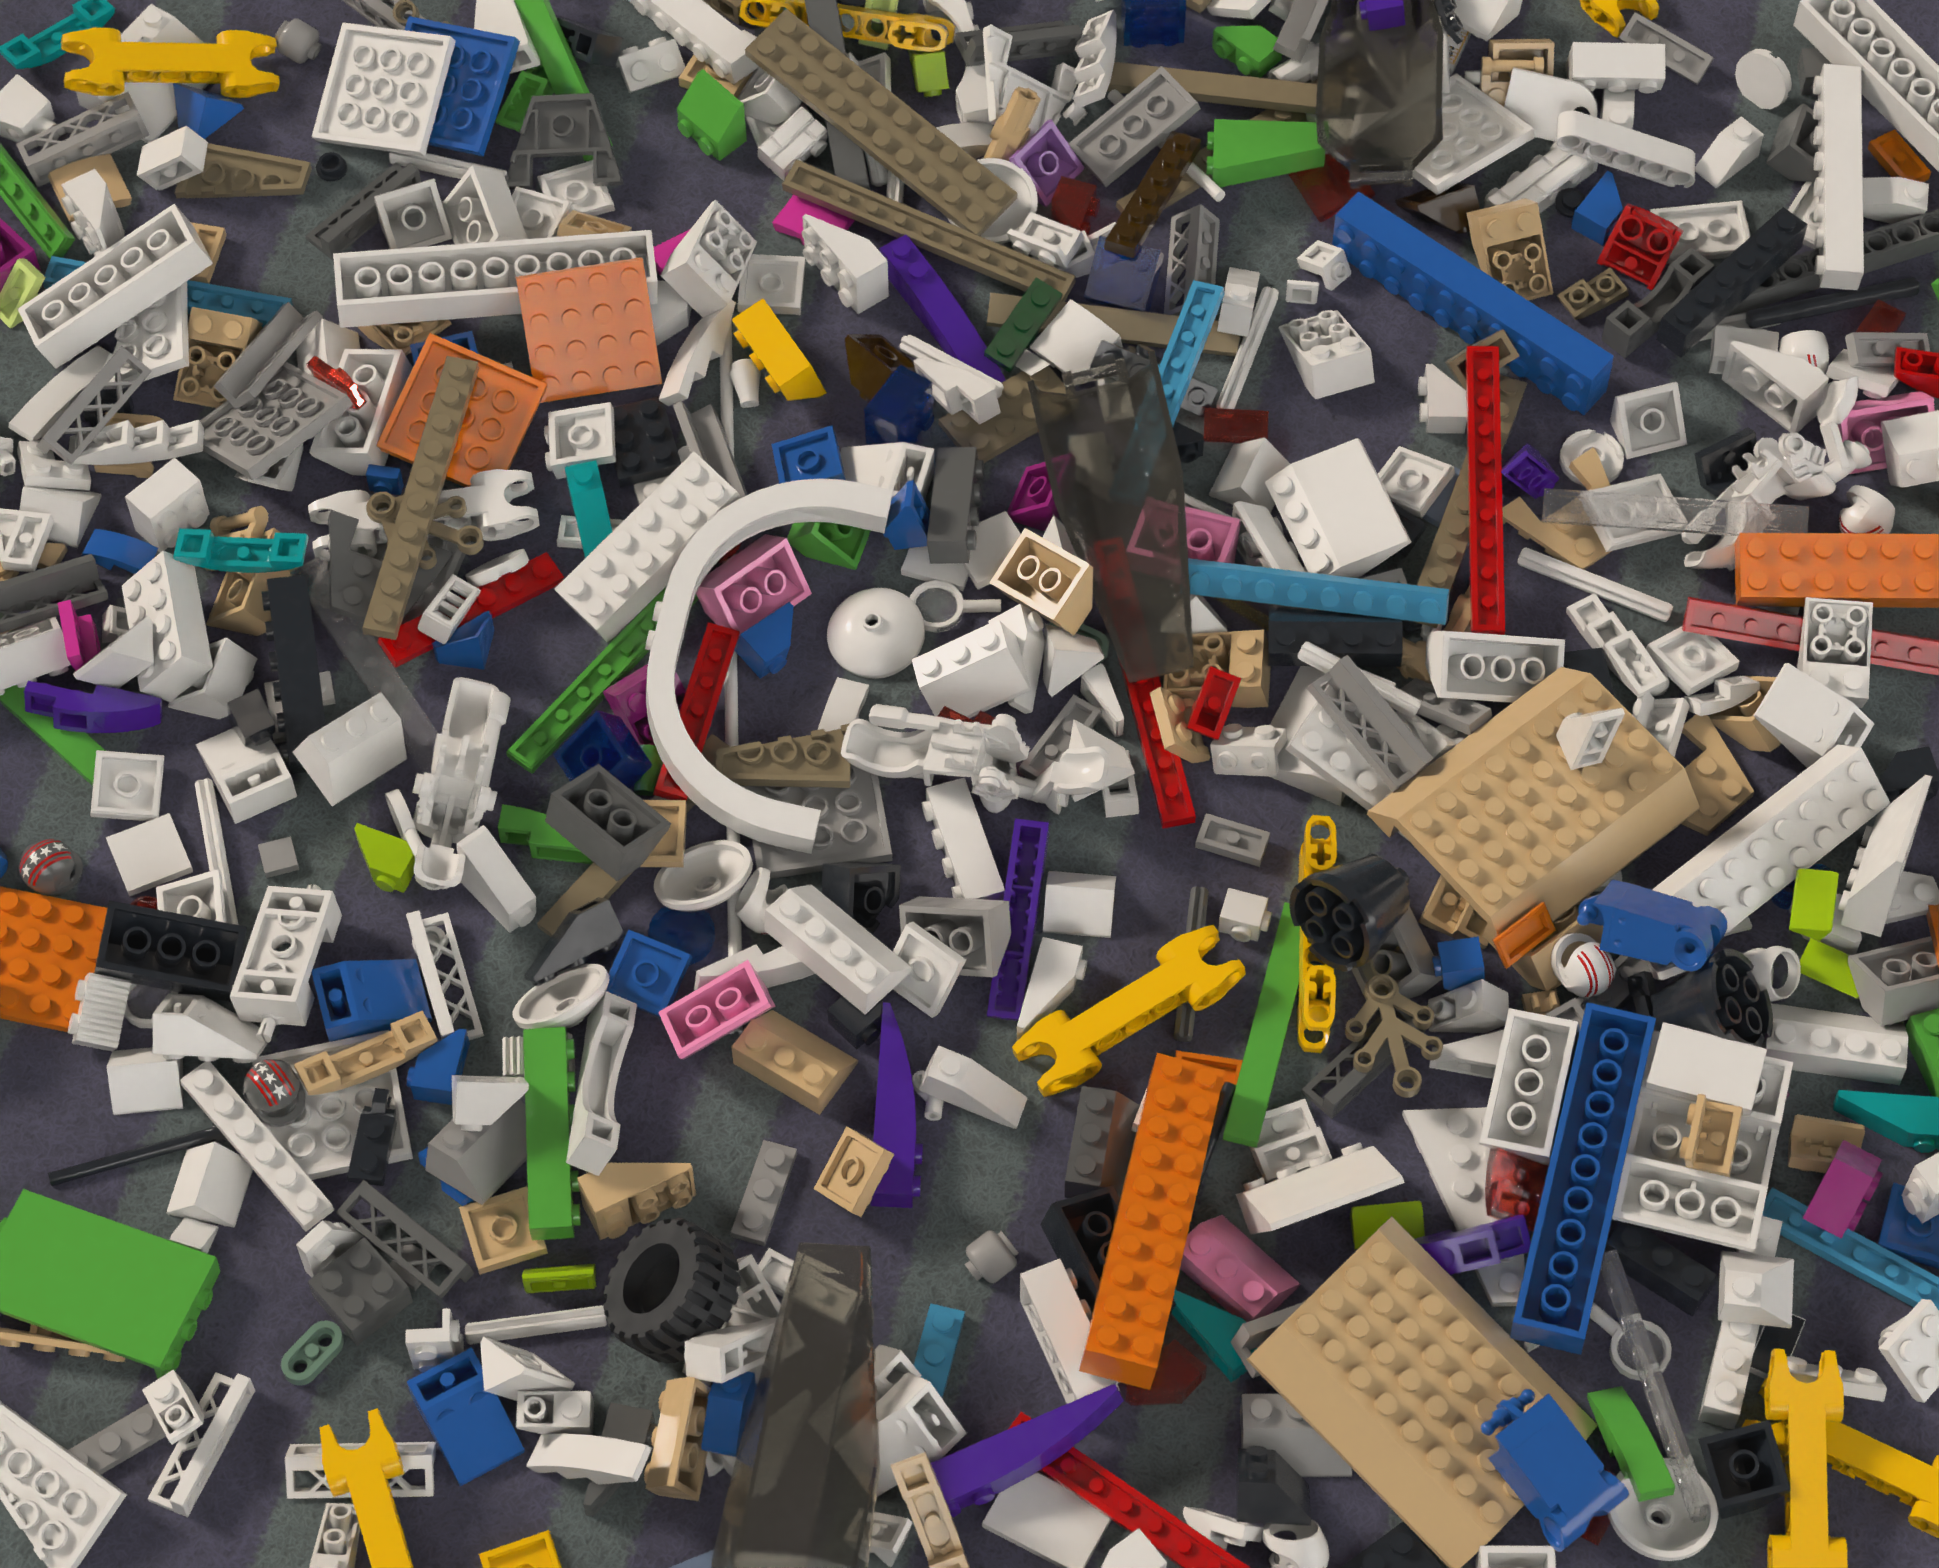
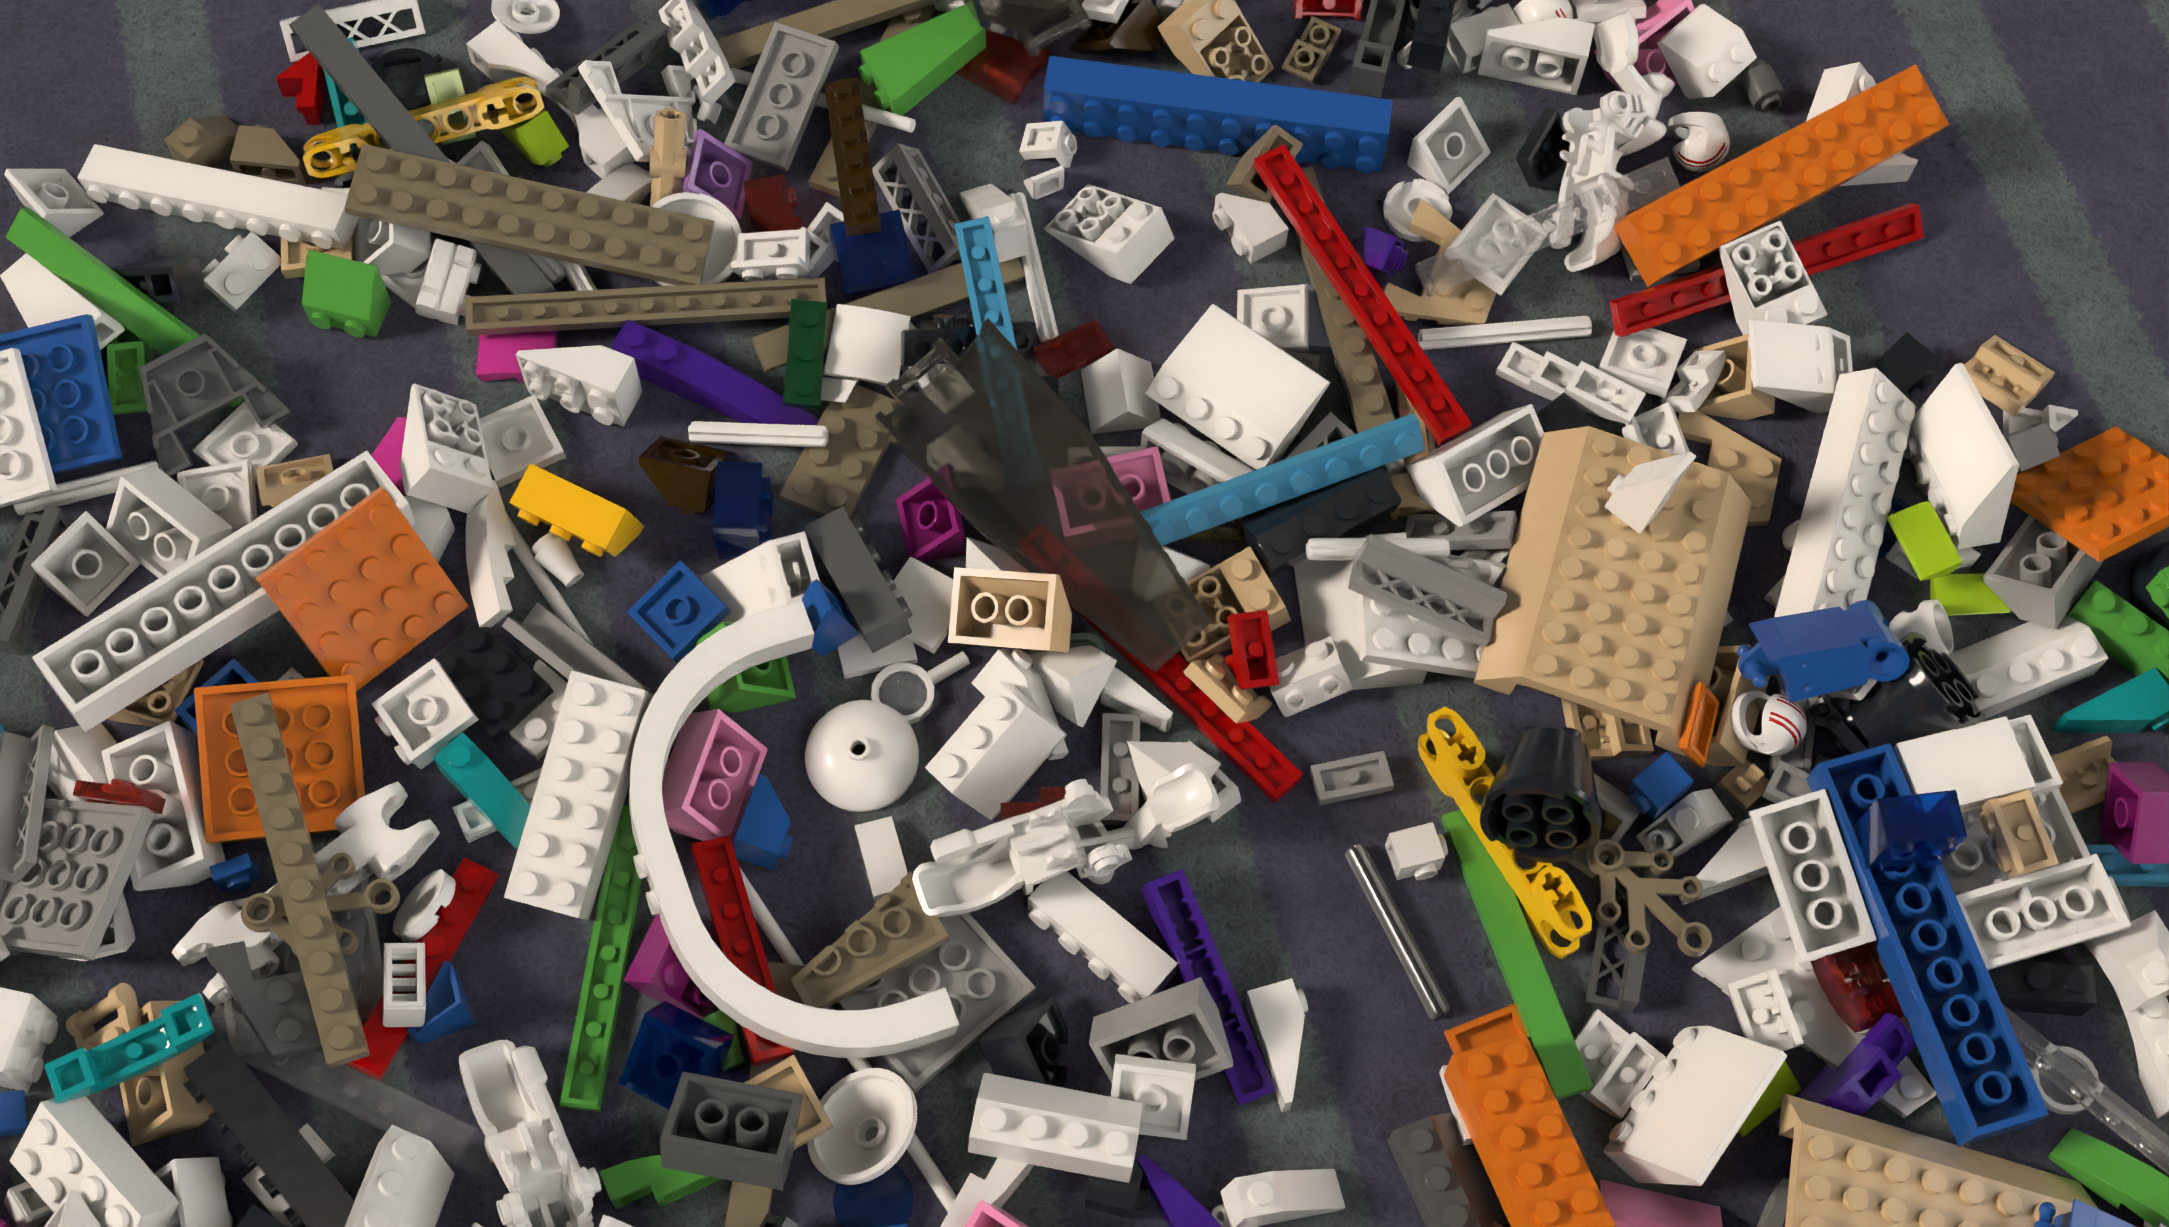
camera: 35 degrees left, 5 degrees up
(756, 899) = (943, 1119): white helmet -> none
(959, 390) = (786, 454): white slope -> none
(1079, 904) = (1251, 929): white slope -> none
(1080, 1040) = (1347, 1083): yellow piece -> none
(1429, 1168) = (1765, 1010): none -> white bracket
(1613, 1076) = (1911, 830): none -> clear blue brick

